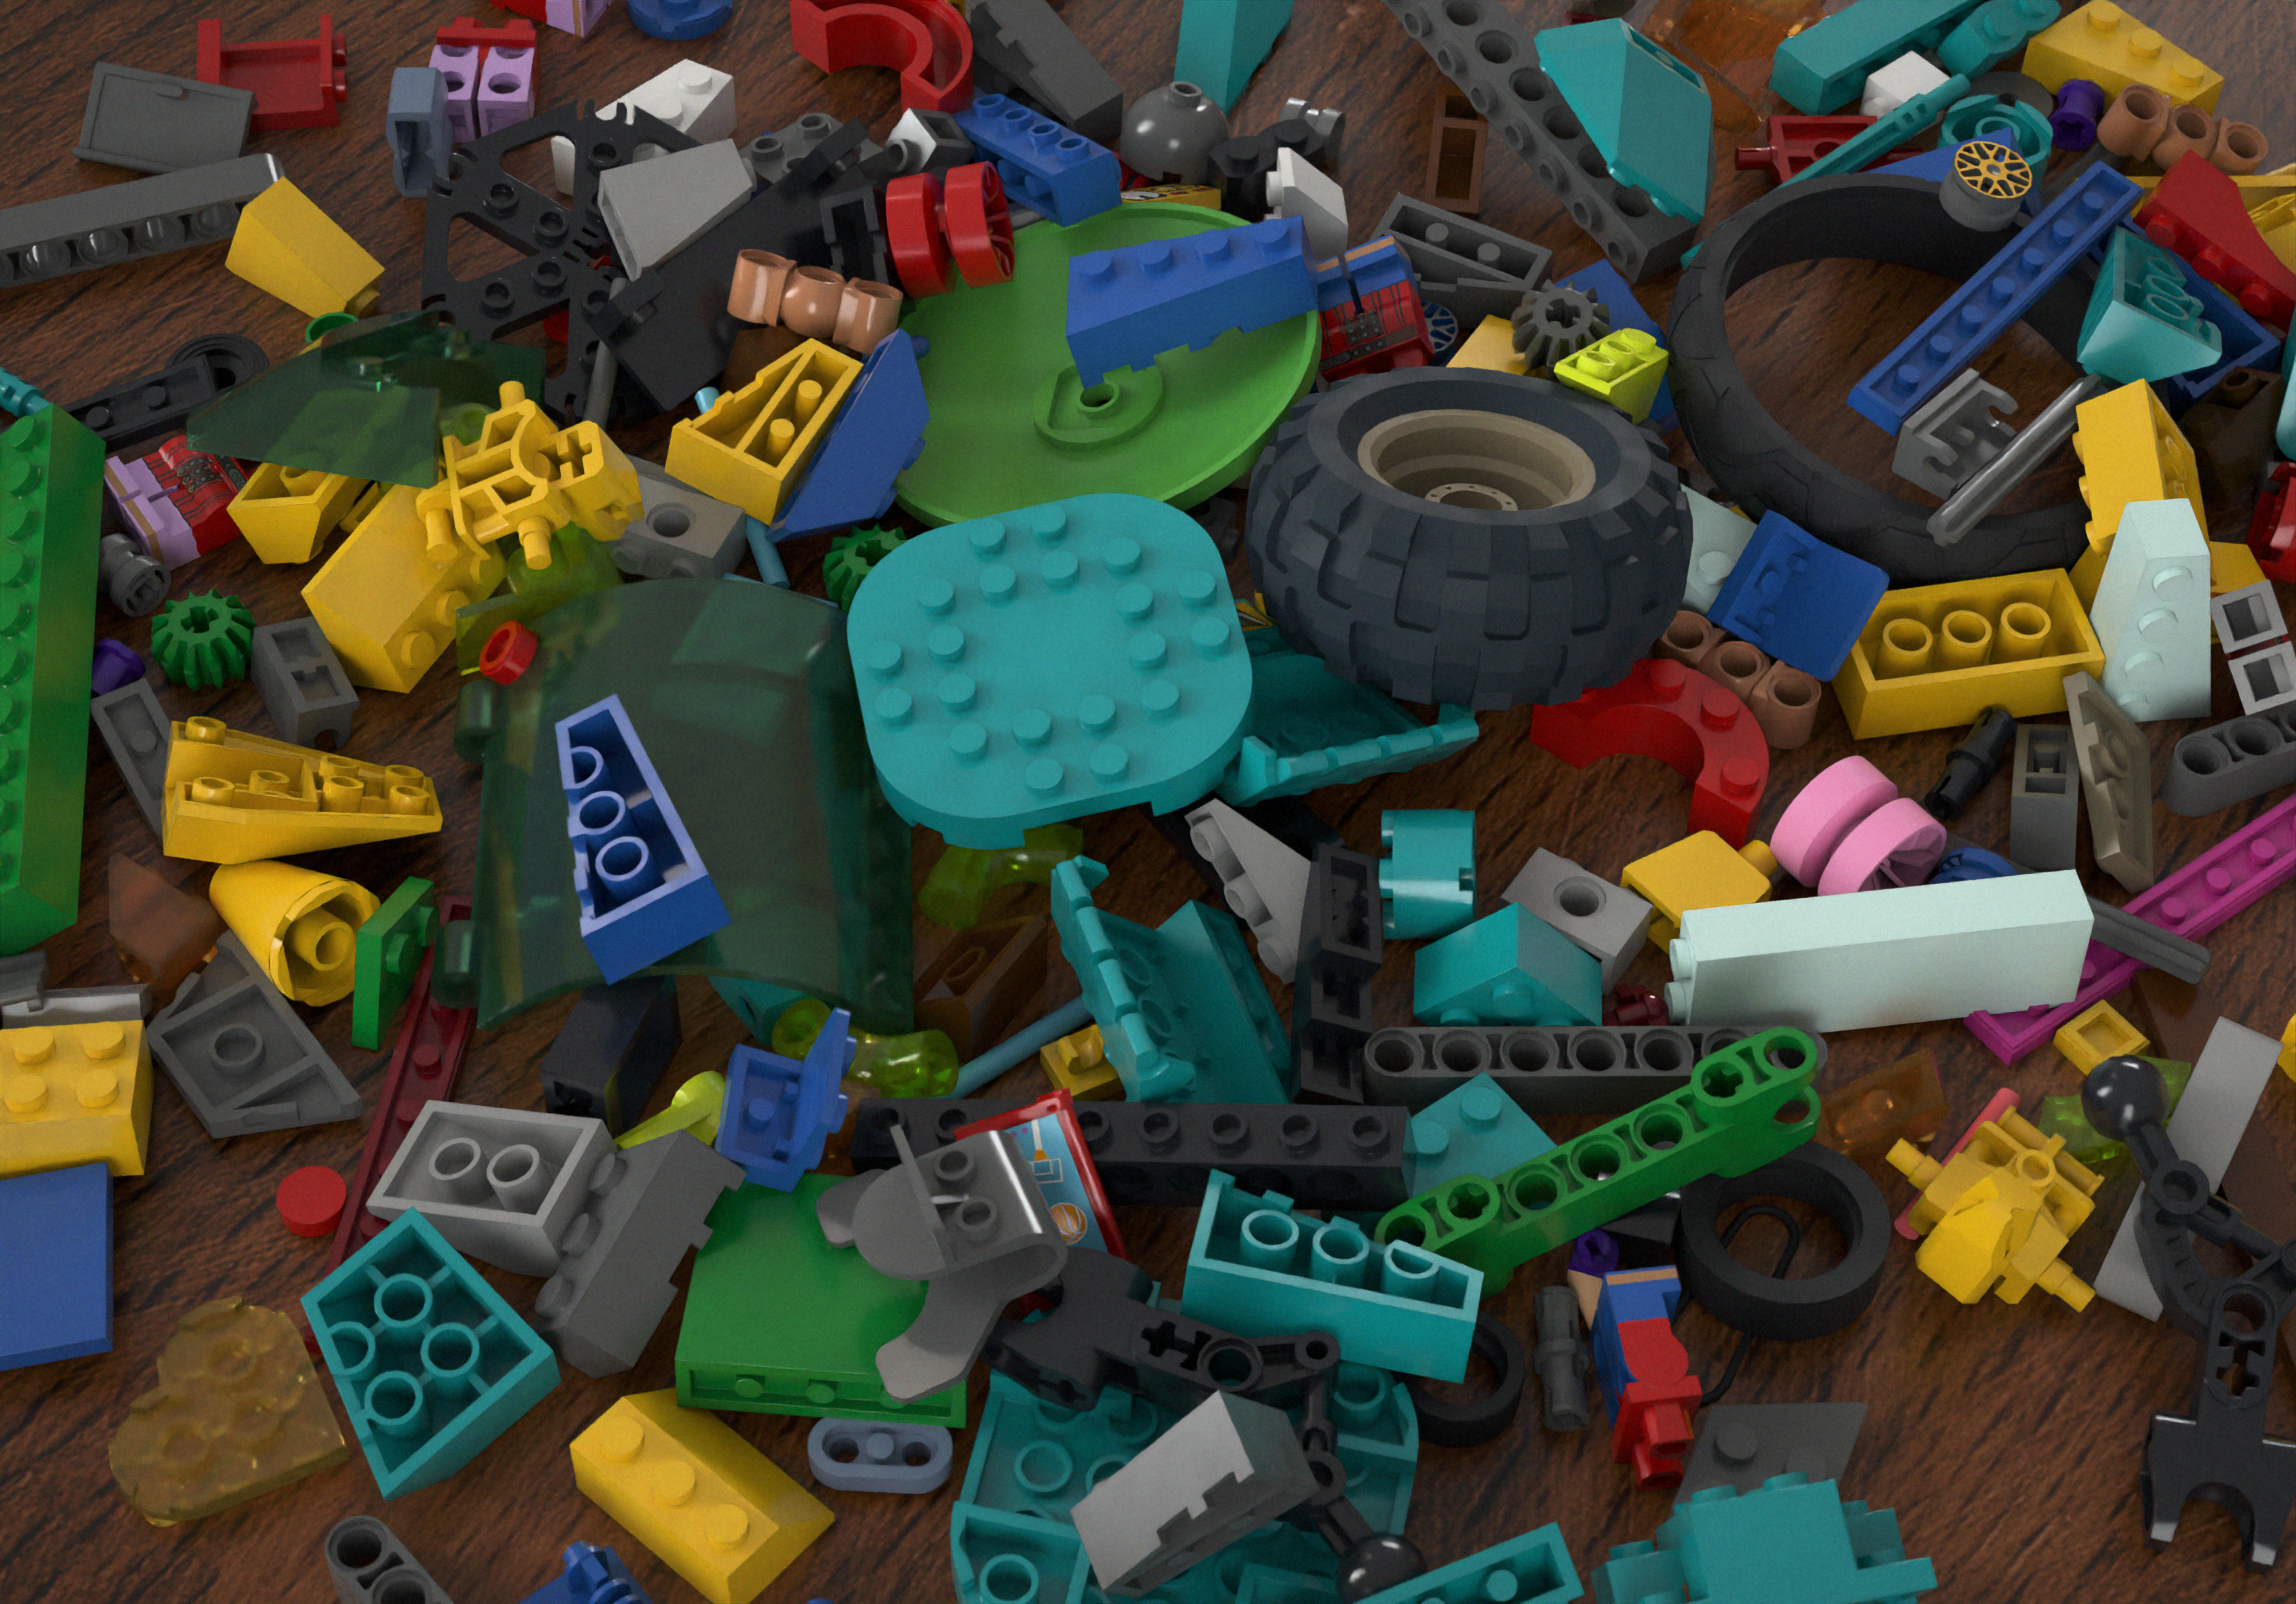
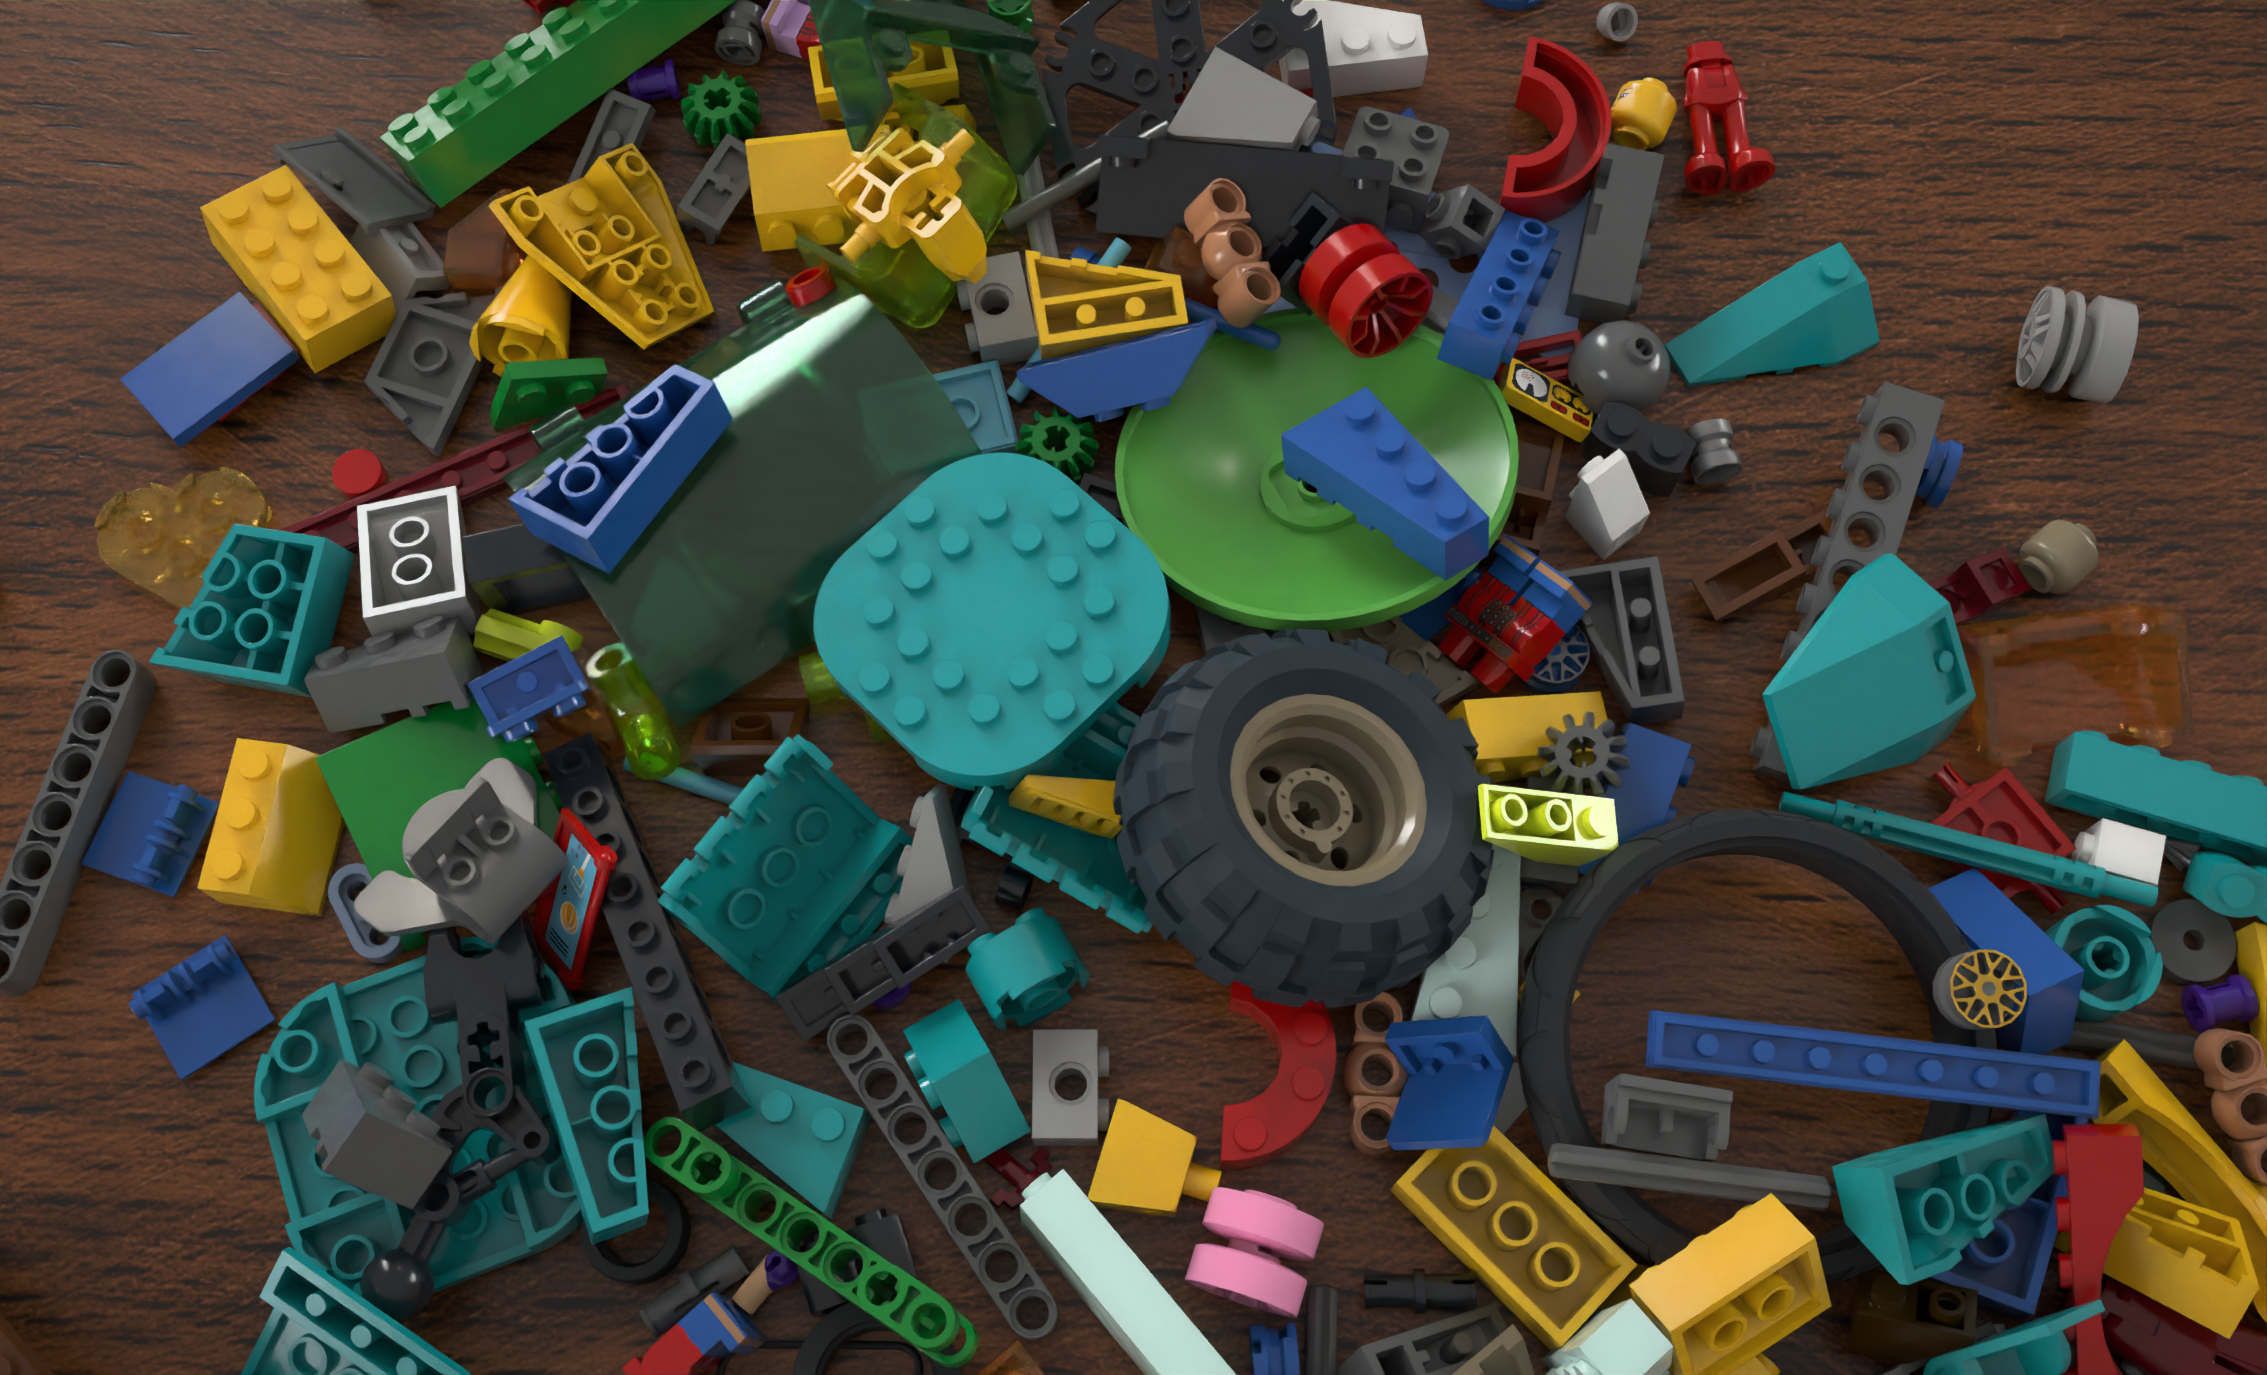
camera: 60 degrees right, 20 degrees up
(1305, 710) = (1070, 801): none -> yellow slope

